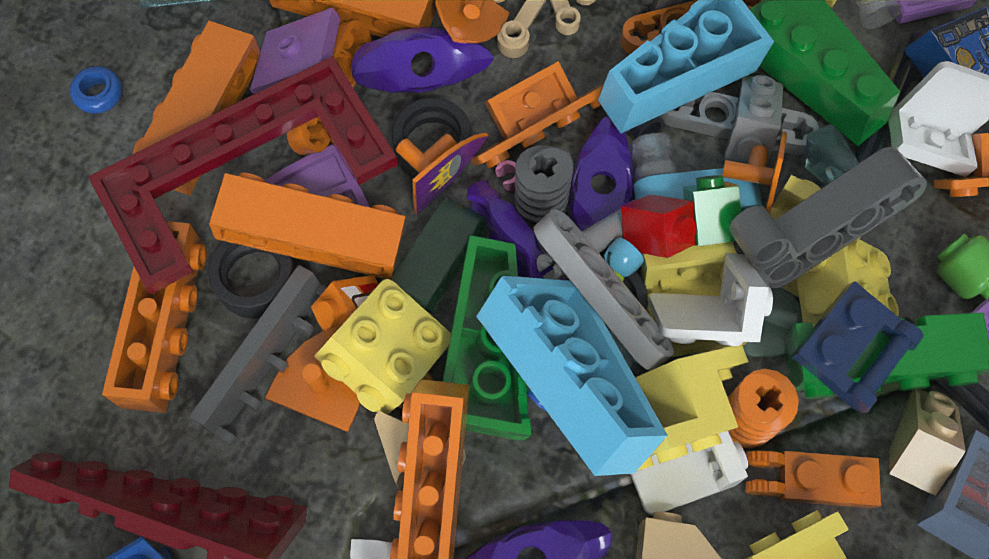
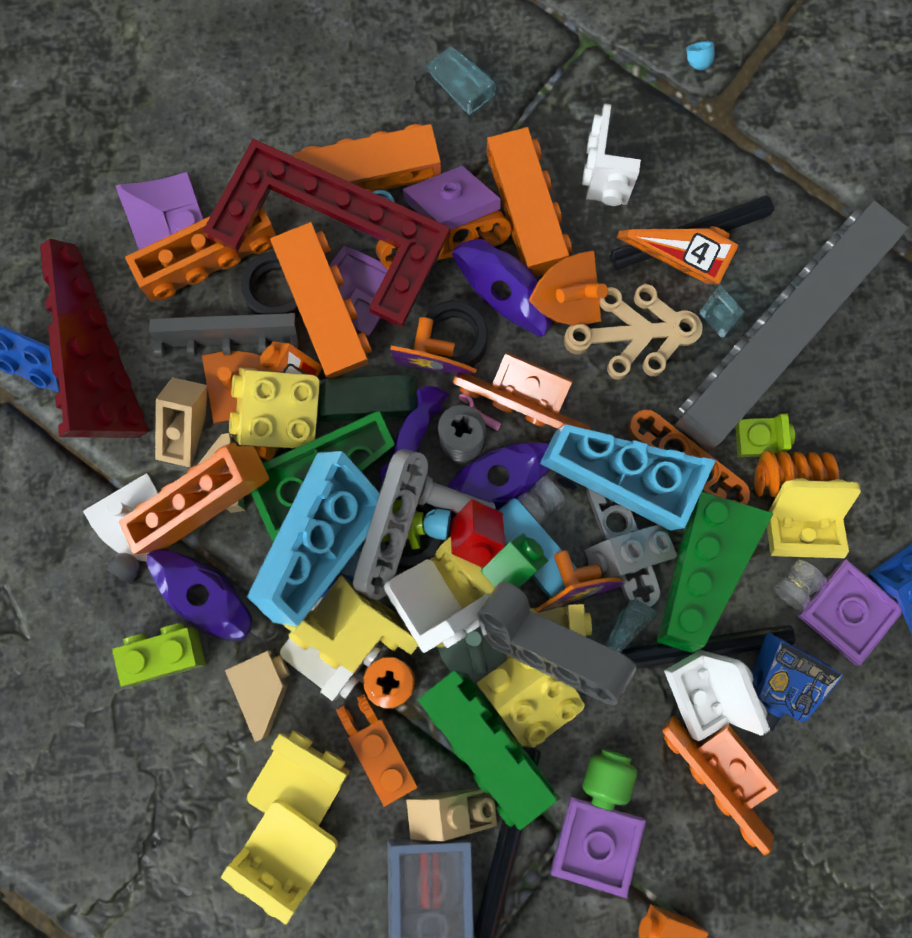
camera: 55 degrees right, 10 degrees up
(73, 339) = (159, 207): none -> medium lavender plate
(88, 78) = (336, 76): blue piece -> none
(324, 461) = (179, 421): none -> tan slope
(842, 338) = (467, 709): dark blue plate -> none

